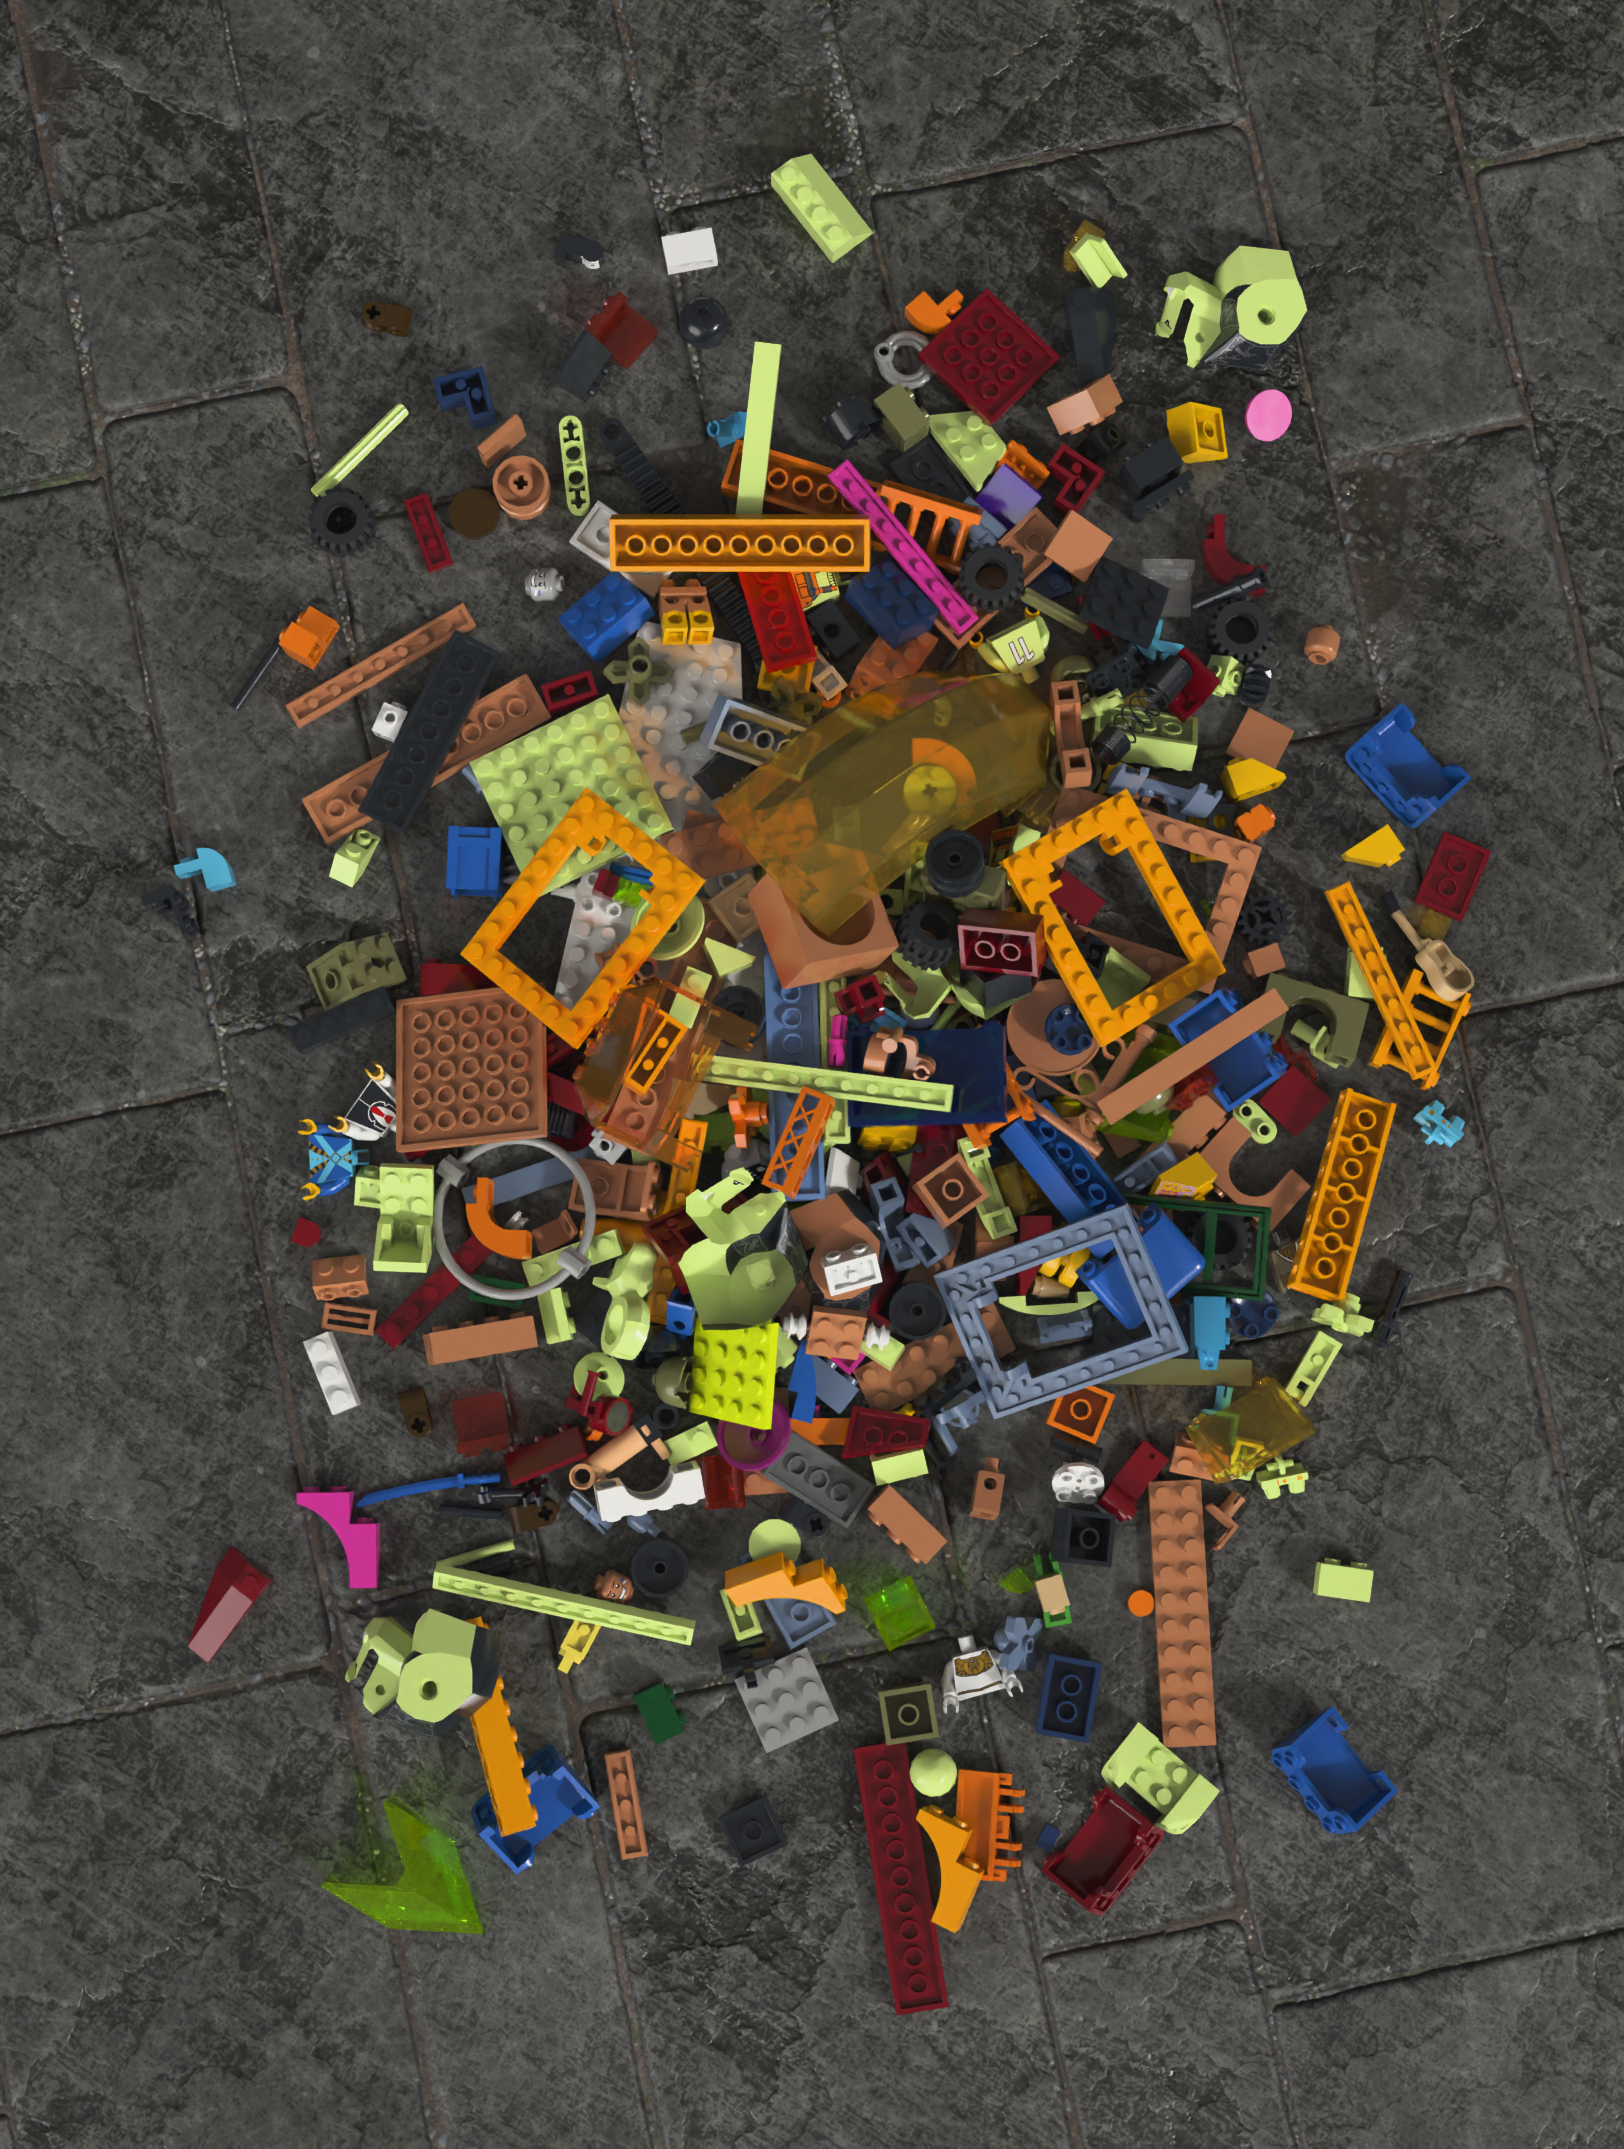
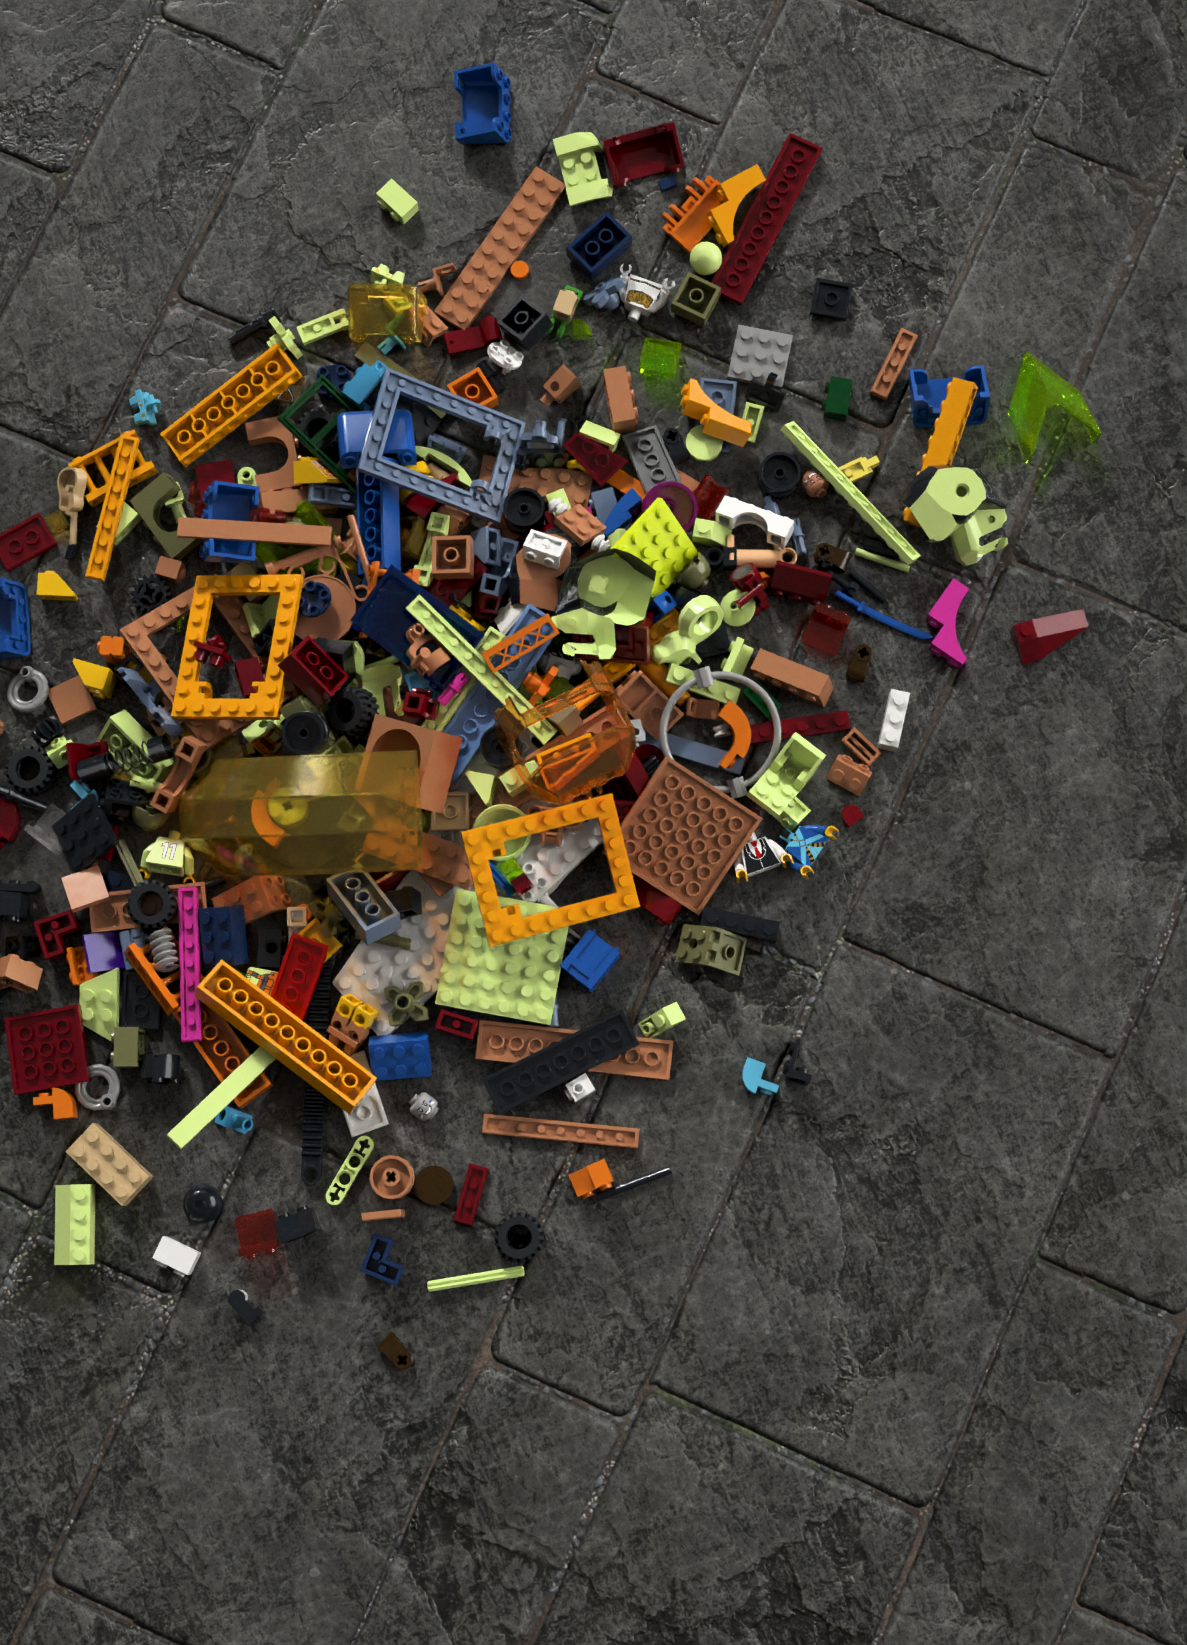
camera: 135 degrees left, 5 degrees down
(830, 290) = (109, 1164): none -> tan brick
(941, 540) = (162, 950): none -> light grey piece
(1122, 887) = (214, 649): none -> dark red hips
(1333, 709) = (20, 678): none -> light grey piece

